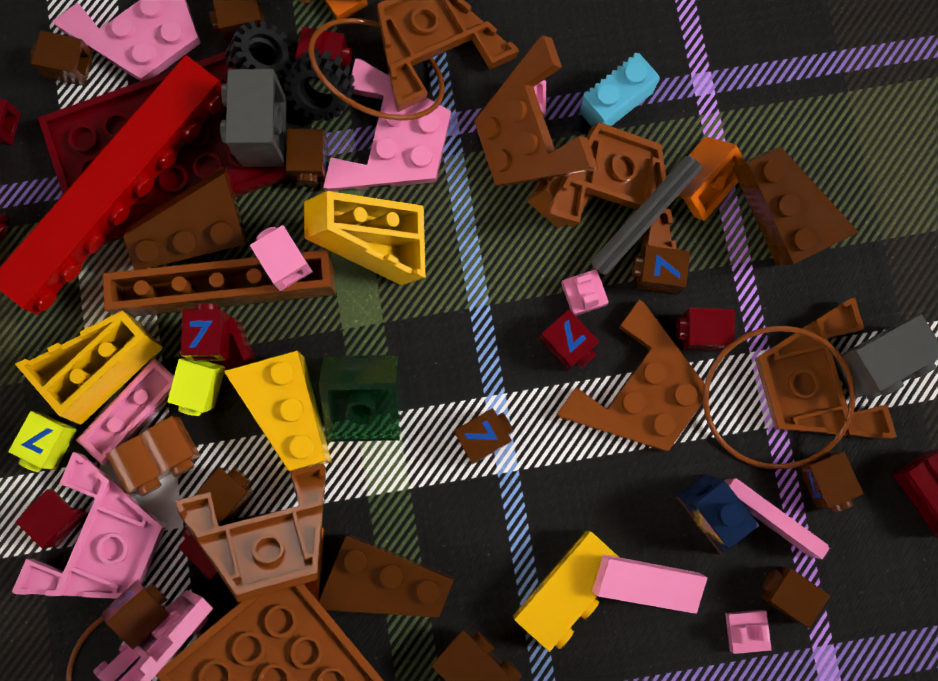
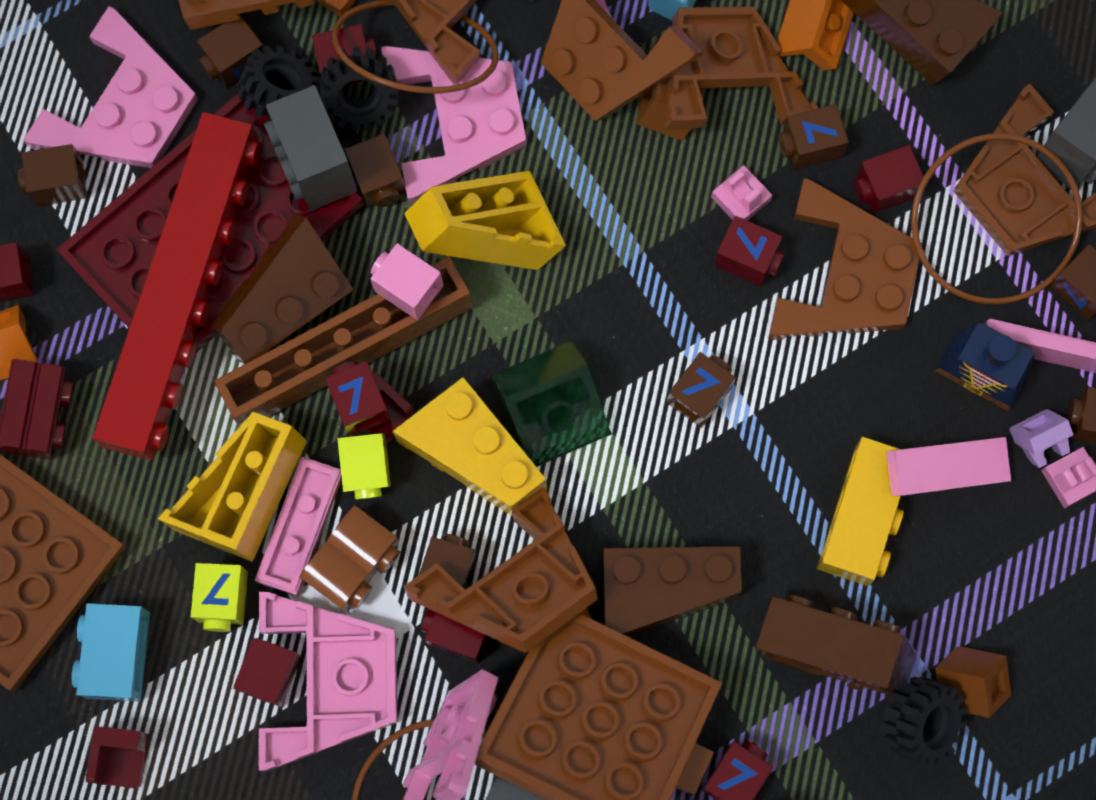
camera: 20 degrees left, 5 degrees down
(136, 613) = (411, 728): reddish brown brick -> none
(646, 214) = (772, 85): dark grey axle -> none
(737, 586) = (1040, 433): none -> lavender tile

